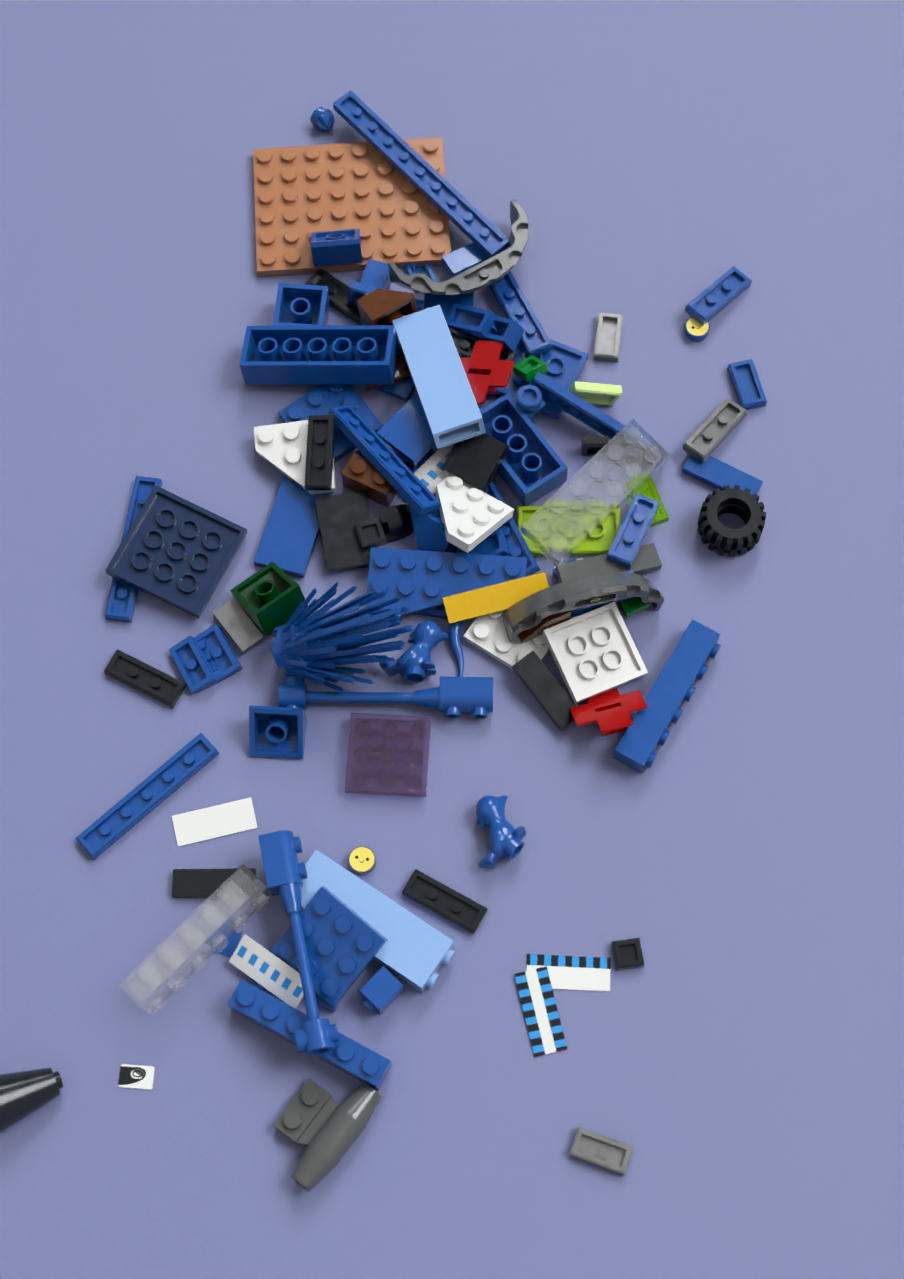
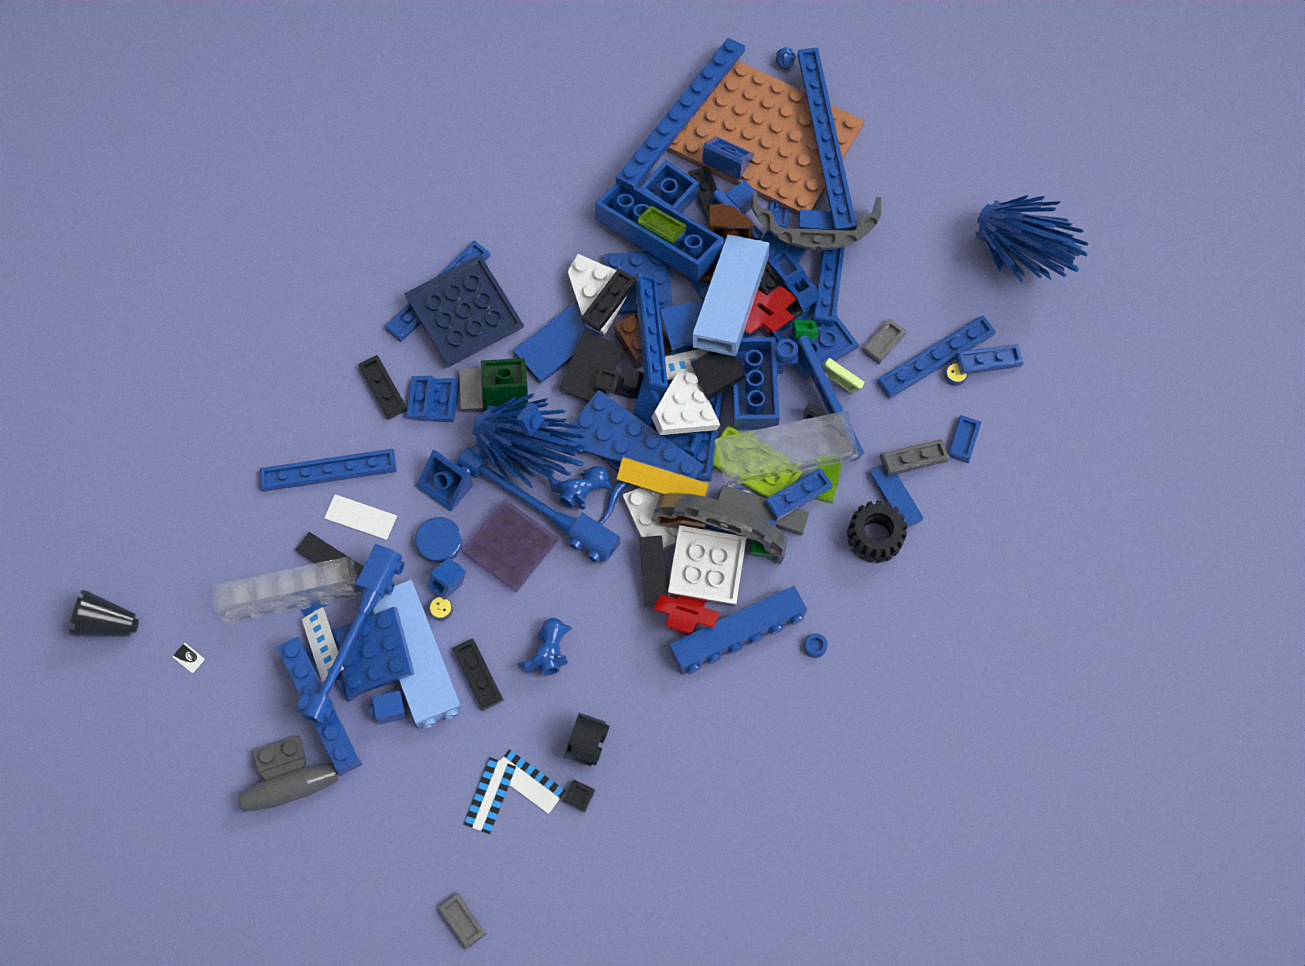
camera: 30 degrees right, 0 degrees up
(261, 231) = (680, 114): none -> blue plate
(312, 794) = (438, 539): none -> blue tile
(323, 346) = (662, 224): none -> clear neon green tile
(338, 612) = (530, 419): none -> blue plate
(349, 826) = (446, 578): none -> blue brick
(600, 894) = (585, 740): none -> black brick
(666, 323) = (935, 357): none -> blue tile
(676, 160) = (1006, 227): none -> blue plant
(748, 665) = (815, 645): none -> blue tile

